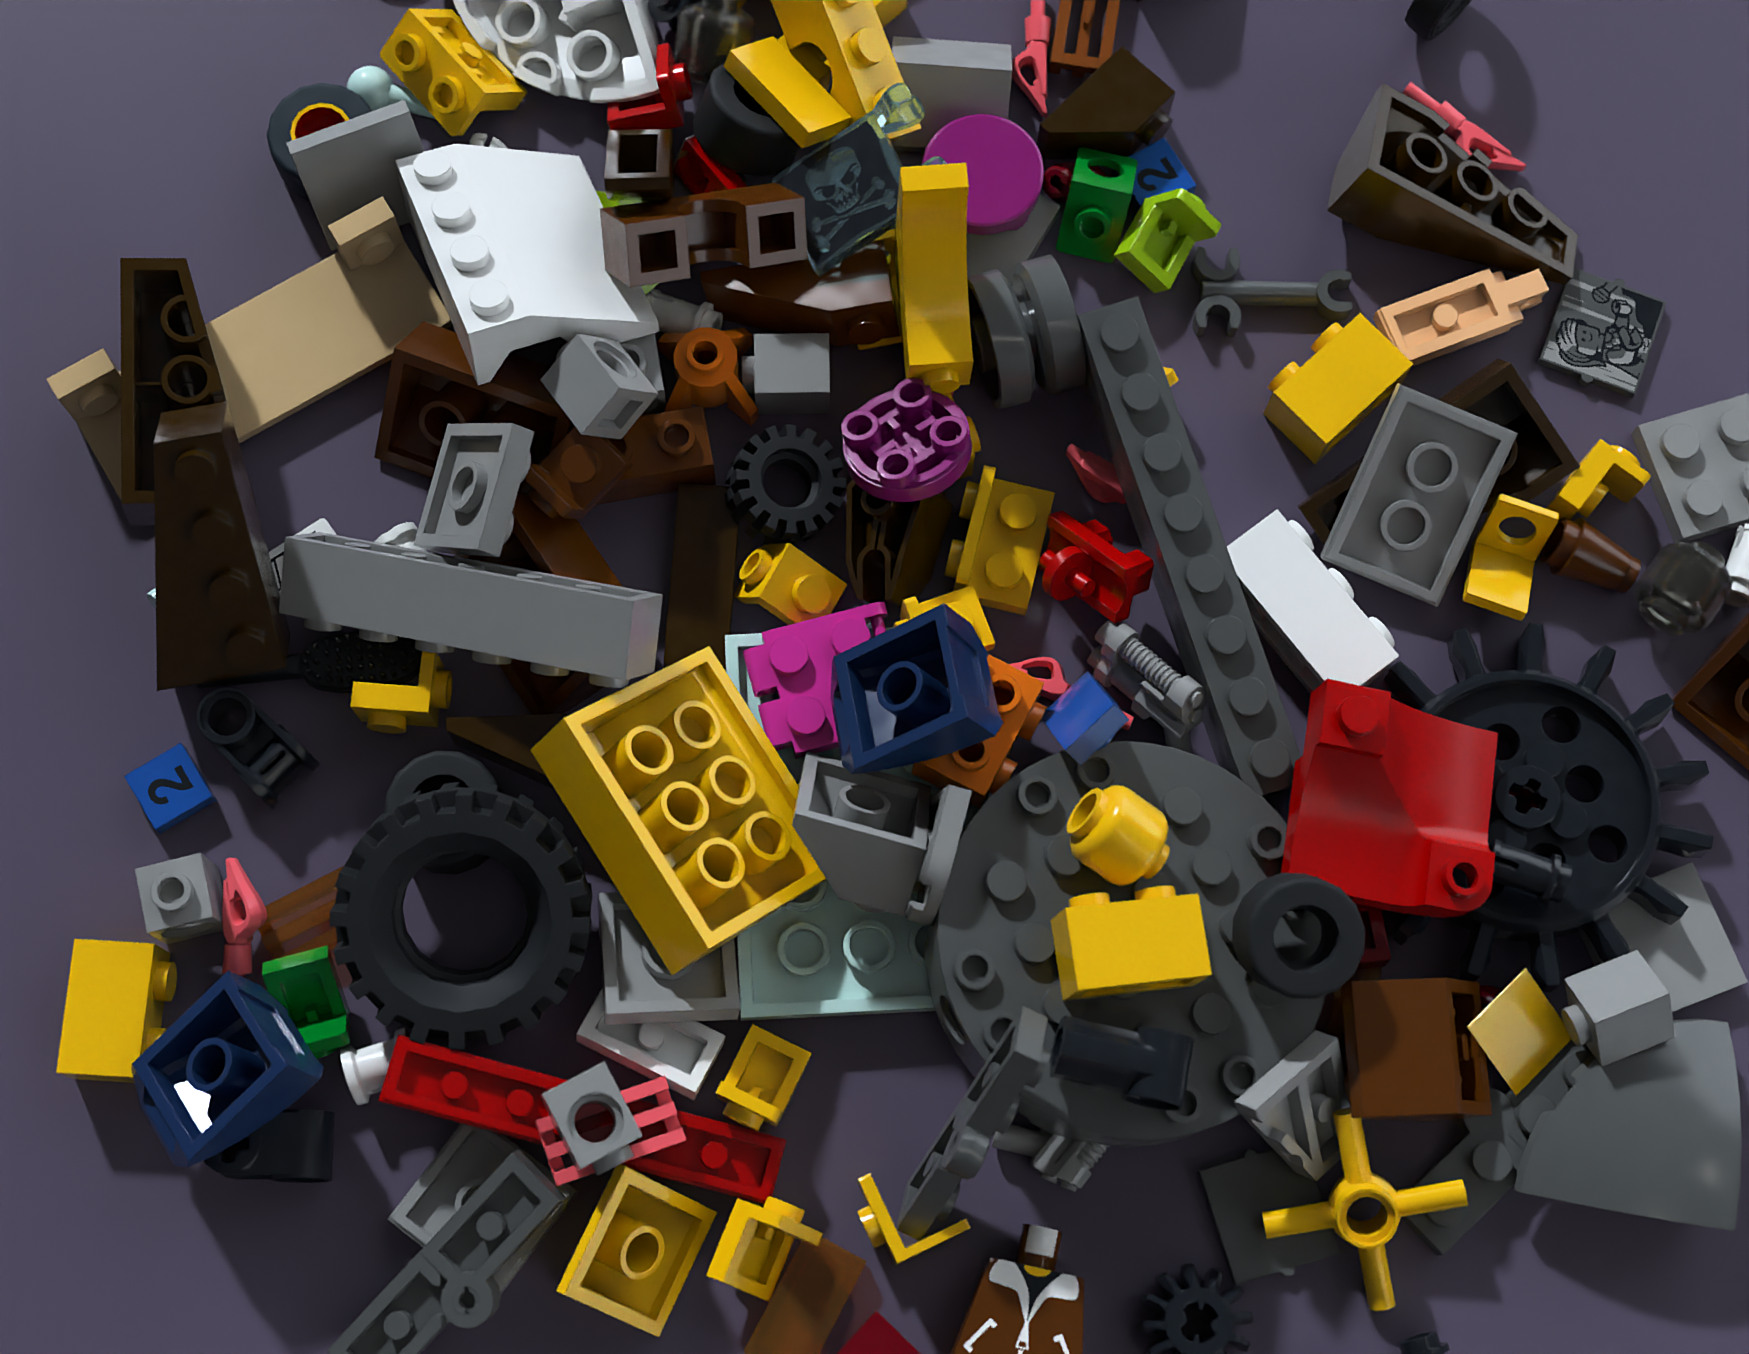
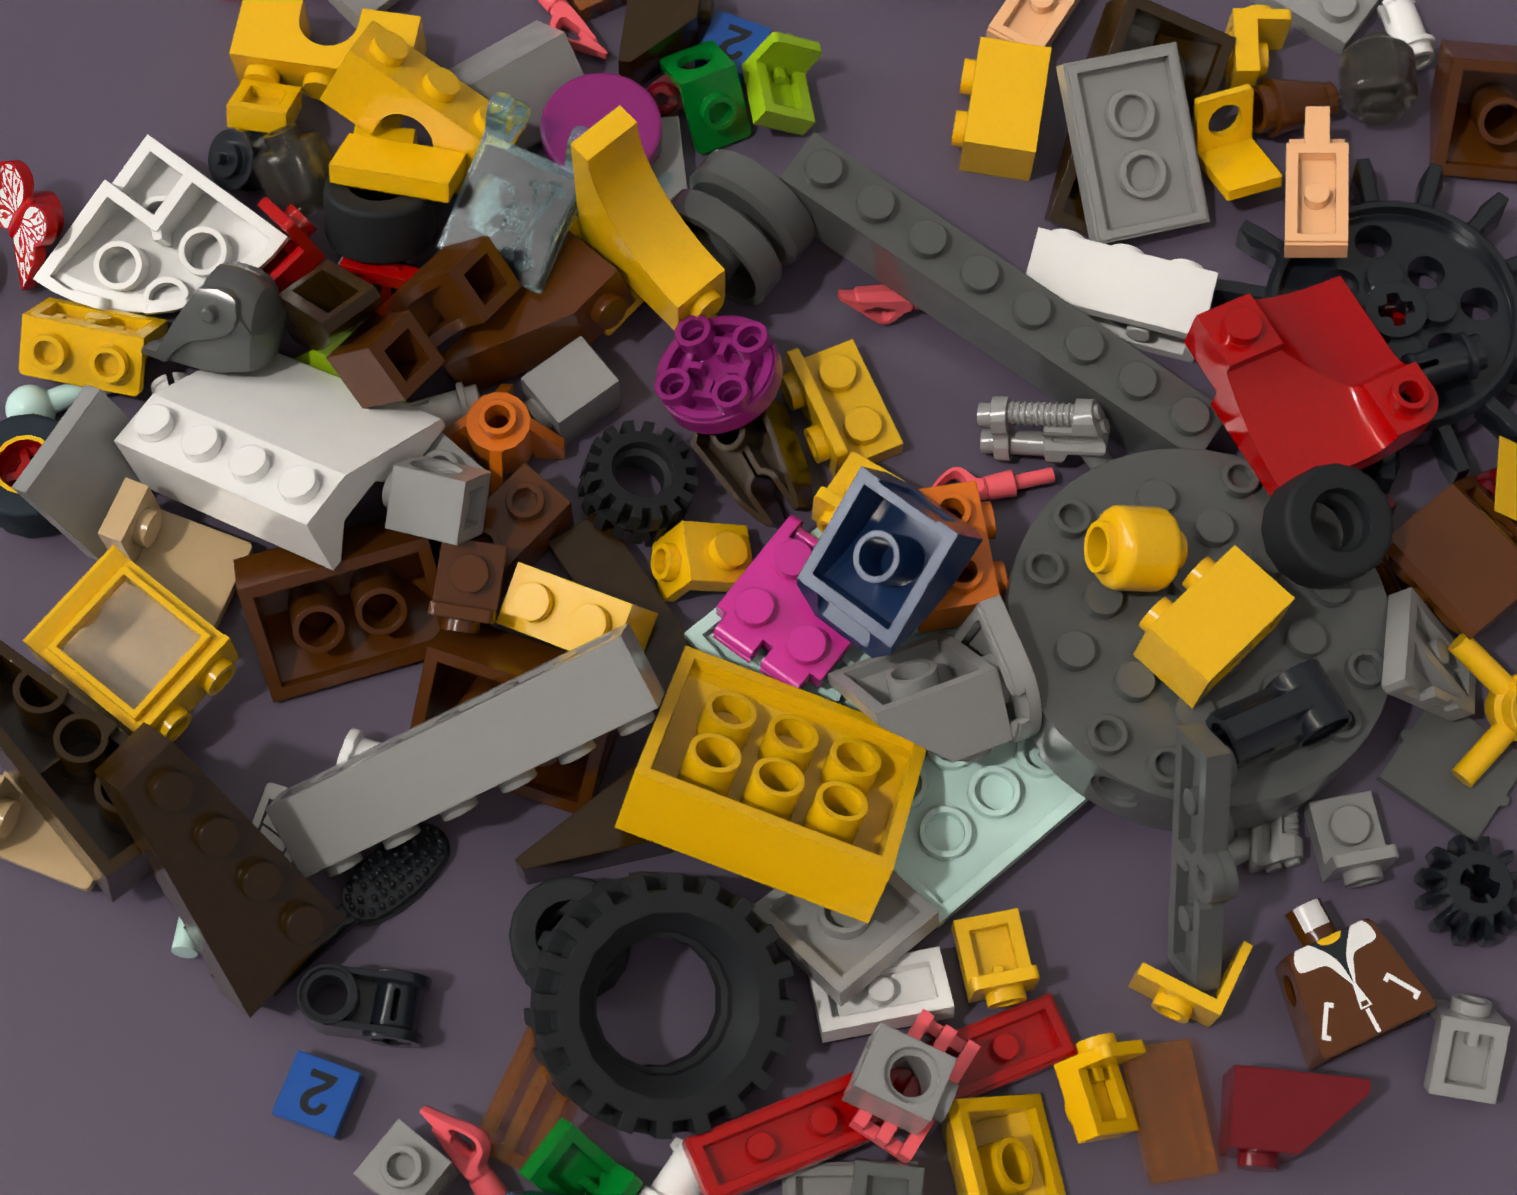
camera: 35 degrees left, 5 degrees down
(290, 339) = (133, 648): none -> yellow window
(392, 707) = (458, 886): yellow bracket -> none
(475, 489) = (397, 655): light grey plate -> none
(556, 126) = (227, 323): none -> dark grey helmet
(646, 555) = (567, 611): none -> yellow brick
(1084, 718) = (1027, 484): blue slope -> none
(1087, 565) = (931, 372): red hips -> none
(1130, 1203) = (1349, 839): none -> light grey bracket
(1223, 294) = (860, 99): dark grey bar -> none
(1539, 646) = (1316, 191): none -> light nougat hinge

